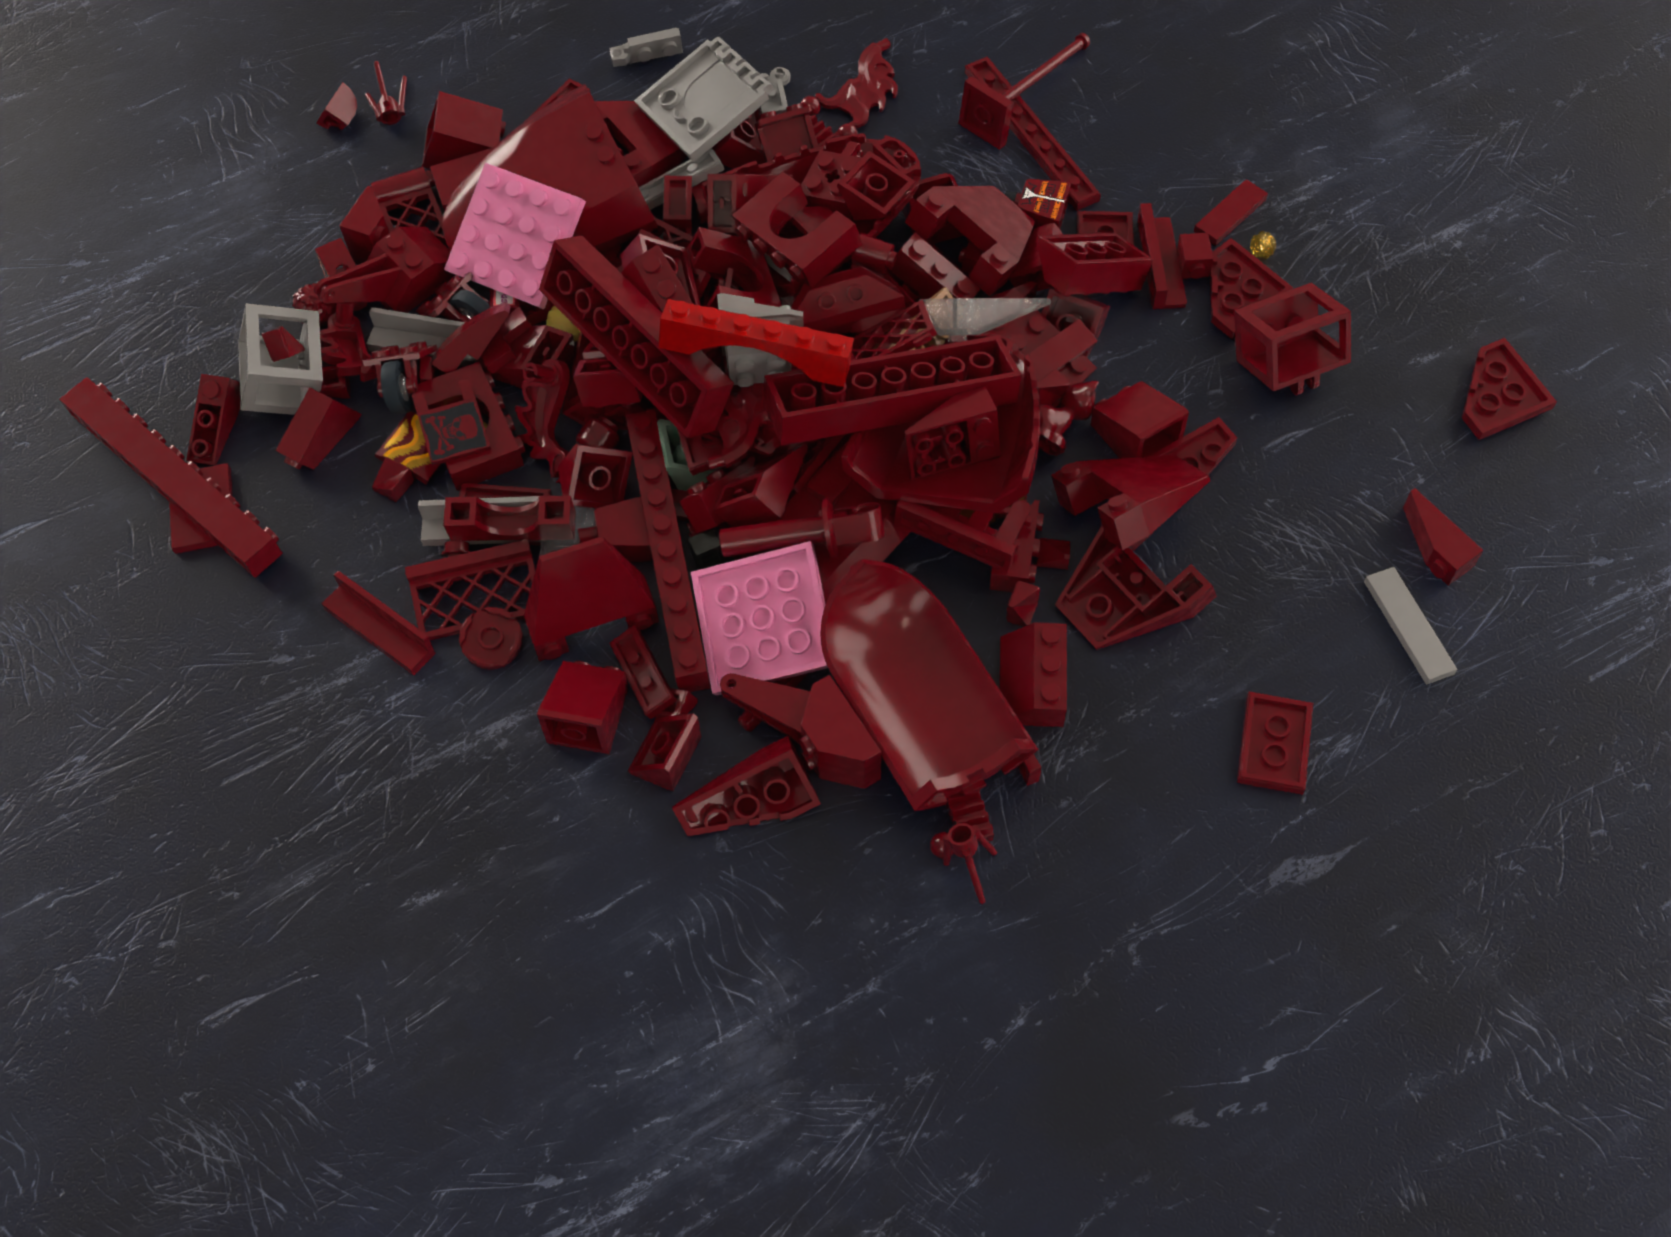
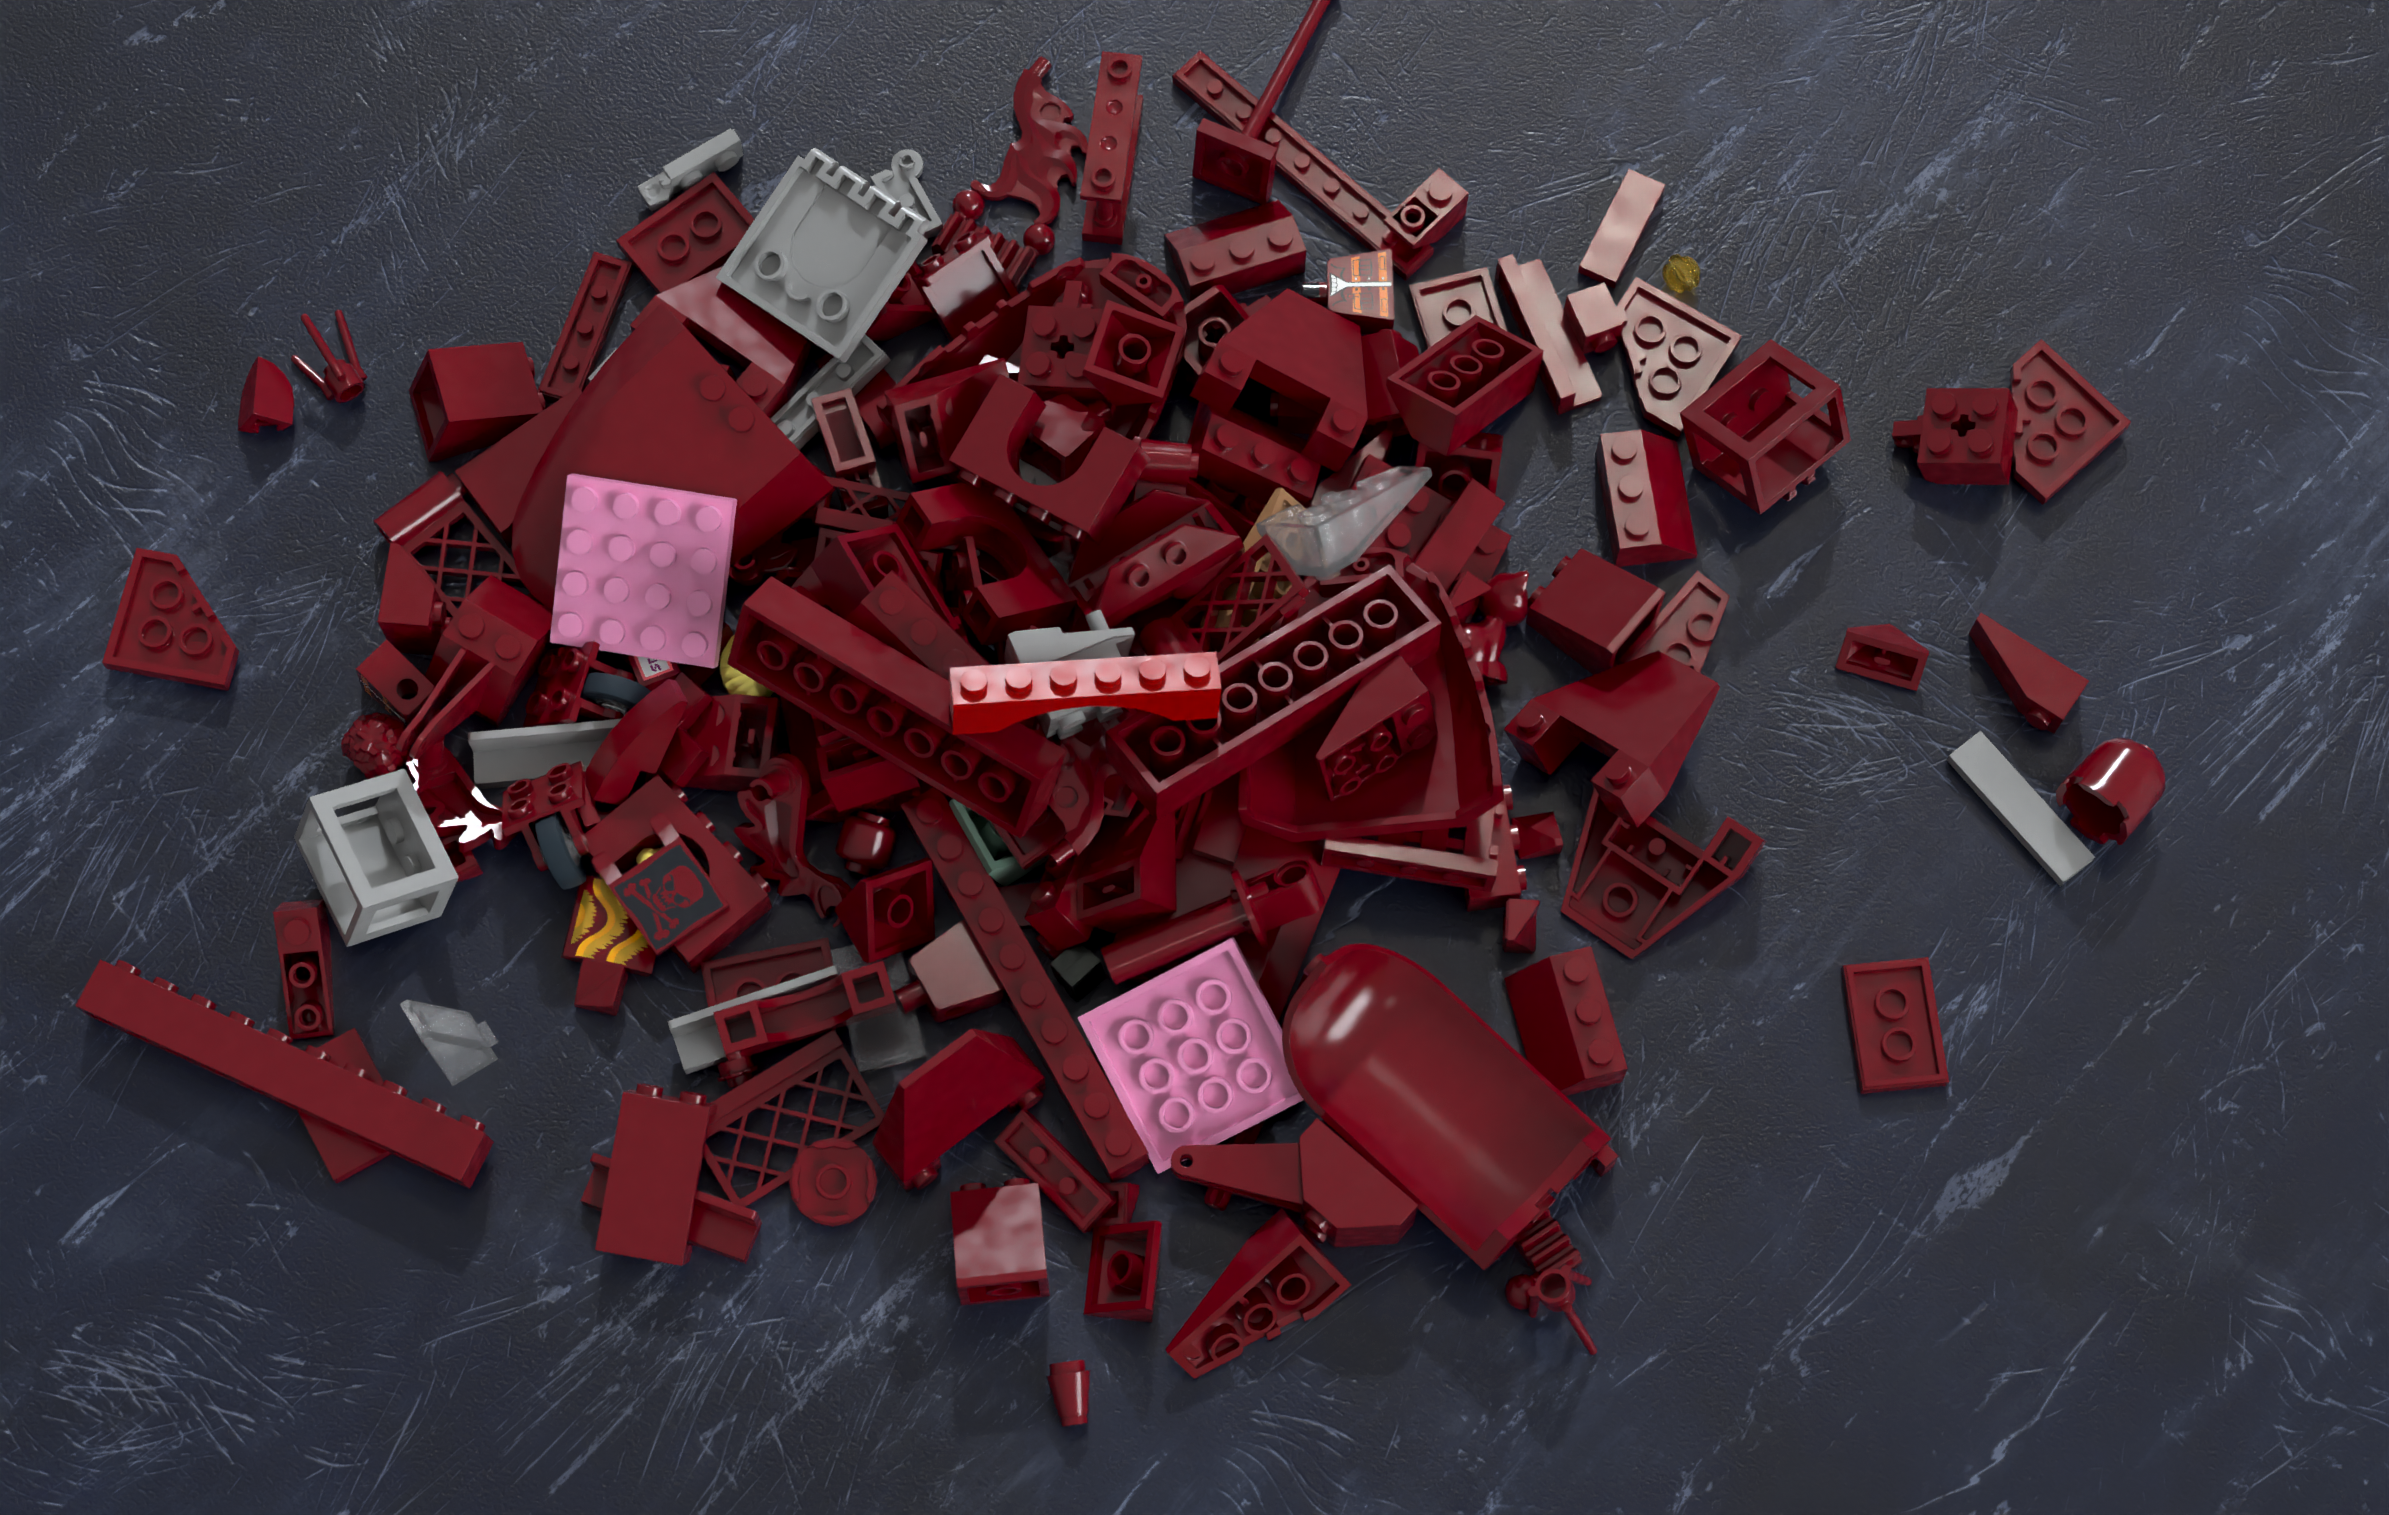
camera: 20 degrees left, 10 degrees up
(223, 213) = (168, 627): none -> dark red plate
(274, 473) = (452, 1038): none -> clear wedge
(281, 344) = (379, 839): dark red slope -> none
(315, 429) = (464, 944): dark red slope -> none
(369, 594) = (654, 1175): none -> dark red panel
(596, 817) = (1070, 1391): none -> dark red cone
(626, 79) = (687, 235): none -> dark red plate
(910, 84) = (1112, 148): none -> dark red fence
(975, 166) = (1238, 250): none -> dark red slope
(1105, 169) = (1429, 211): none -> dark red slope
(1197, 366) = (1644, 498): none -> dark red slope
(1335, 503) = (1883, 655): none -> dark red slope
(1432, 379) = (1962, 435): none -> dark red hinge
(1482, 625) = (2113, 790): none -> dark red cylinder

